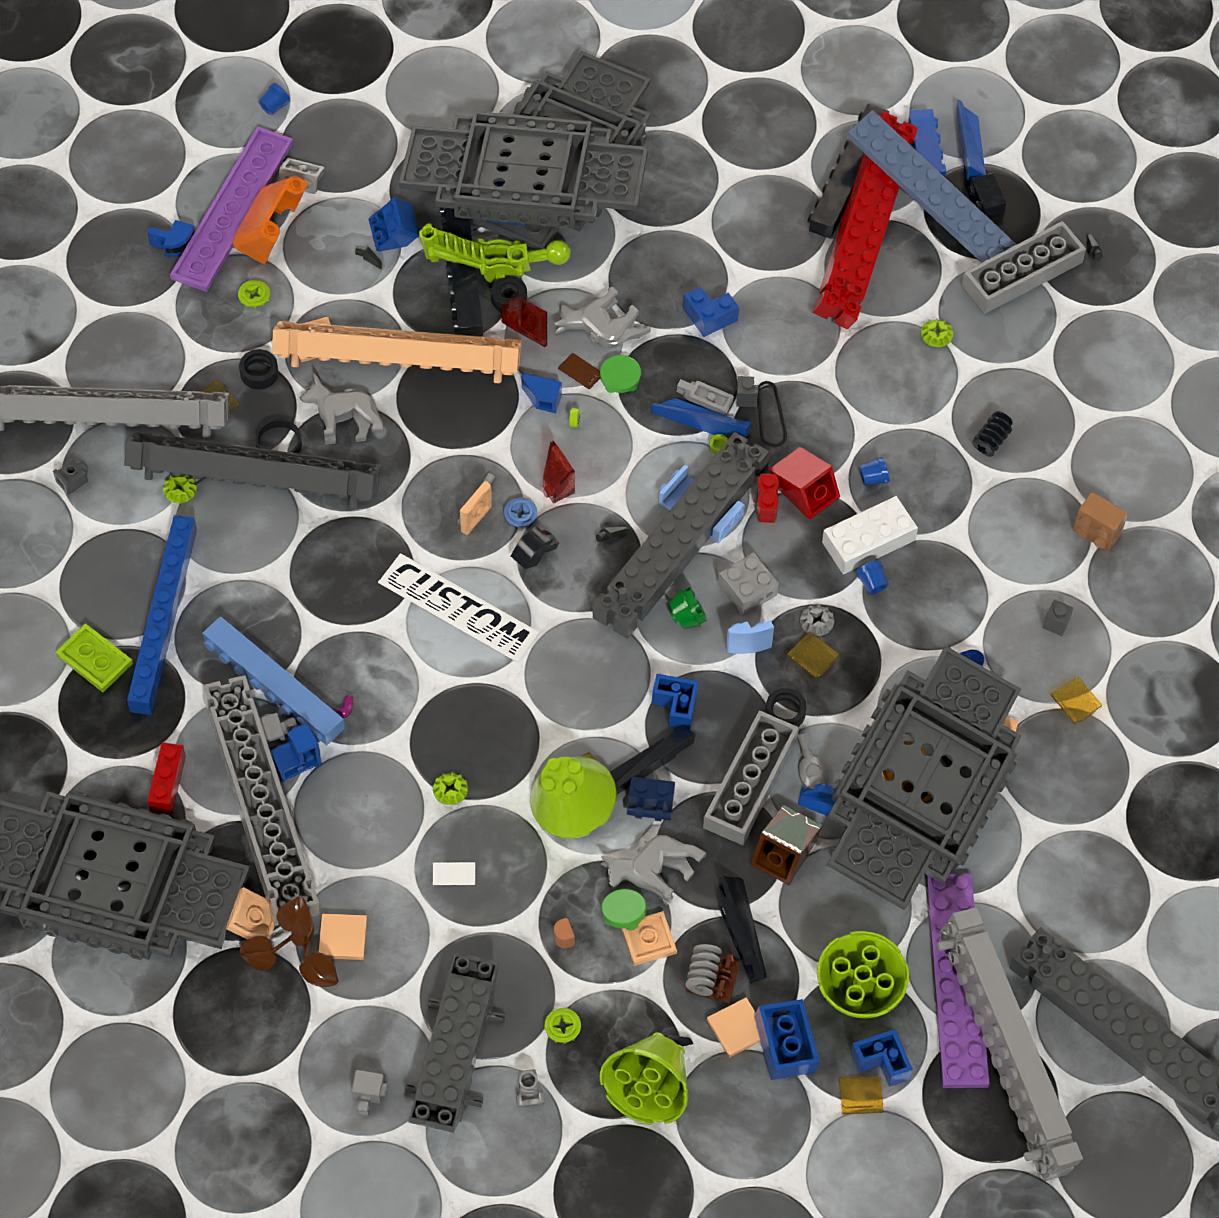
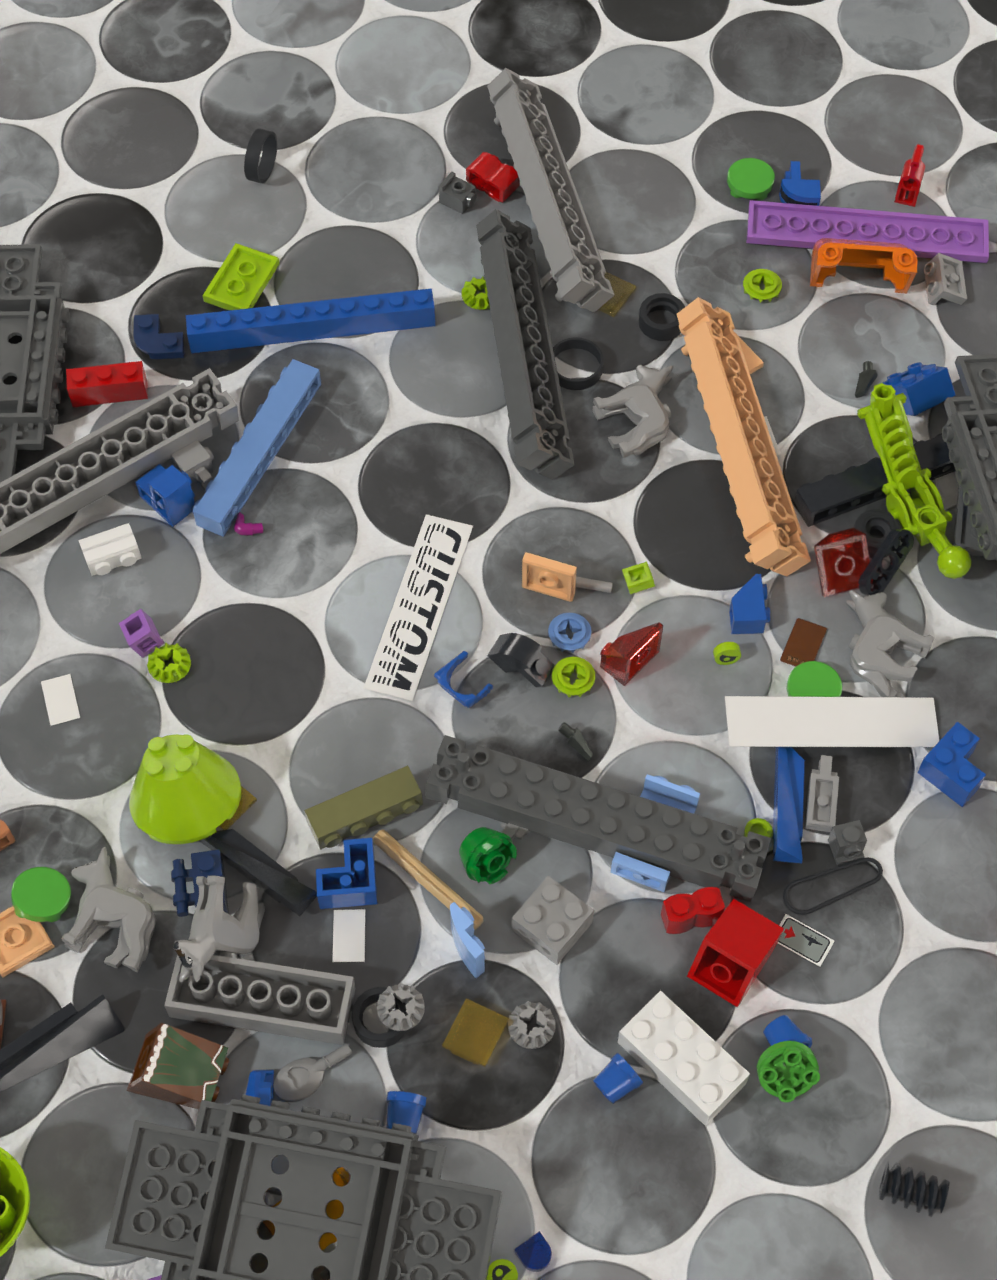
camera: 75 degrees right, 0 degrees up
(64, 446) = (492, 177): none -> red brick
(126, 742) = (157, 344): none -> dark blue plate
(145, 268) = (750, 179): none -> bright green tile
(201, 160) = (911, 178): none -> red piece
(332, 808) = (110, 550): none -> white brick
(427, 795) = (141, 633): none -> medium lavender brick
(490, 455) = (638, 577): none -> lime tile
(537, 603) = (444, 678): none -> blue helmet
(538, 295) = (896, 557): none -> black beam
(555, 513) = (566, 667): none -> lime gear
(622, 682) = (364, 807): none -> olive brick
(654, 370) = (831, 721): none -> white sticker
(686, 657) = (423, 874): none -> tan axle
(696, 786) = (218, 931): none -> light grey animal
(714, 718) = (349, 936): none -> white sticker
(782, 696) = (396, 1019): none -> light grey gear
(808, 440) = (804, 940): none -> light grey sticker
(859, 710) = (405, 1109): none -> blue piece
(898, 475) = (788, 1070): none -> bright green tile

